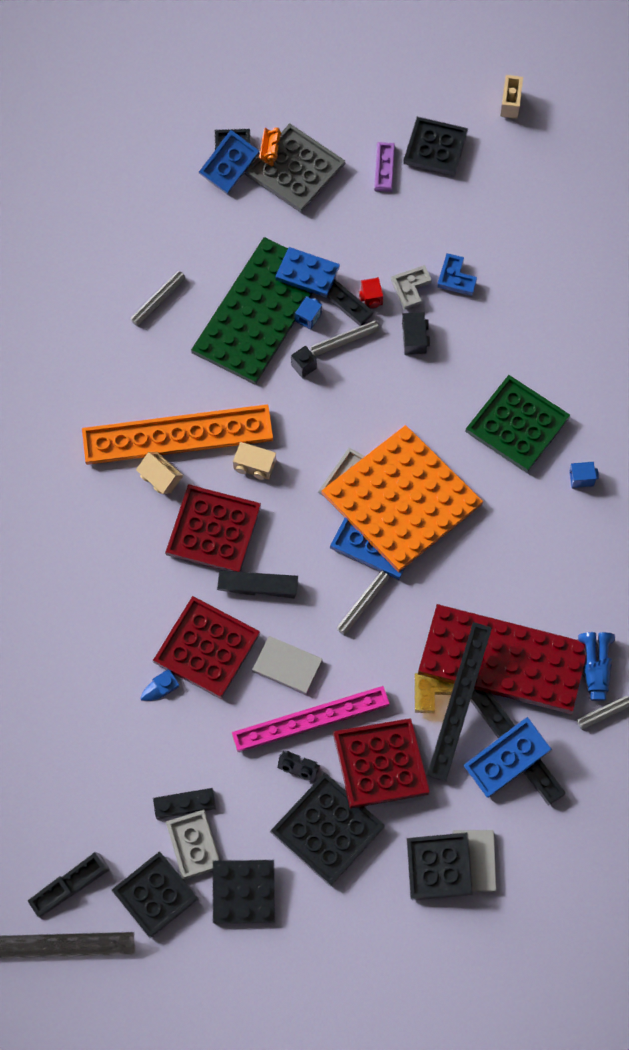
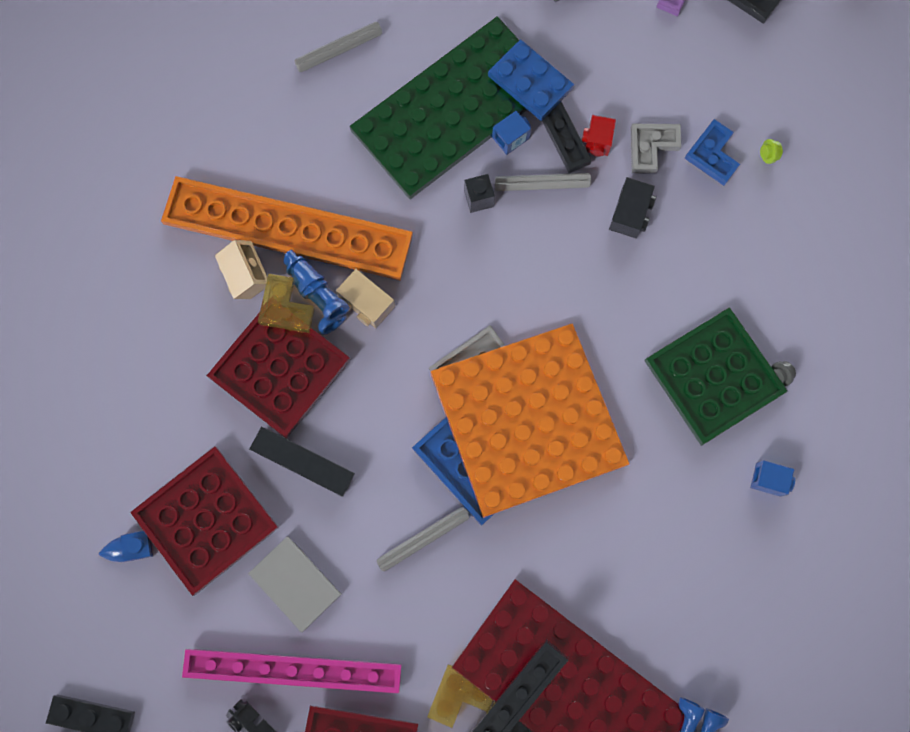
camera: 20 degrees right, 10 degrees up
(199, 489) = (279, 311): none -> clear yellow plate
(214, 464) = (313, 287): none -> blue piece
(495, 261) = (771, 151): none -> lime plate
(563, 402) = (785, 372): none -> dark grey plate

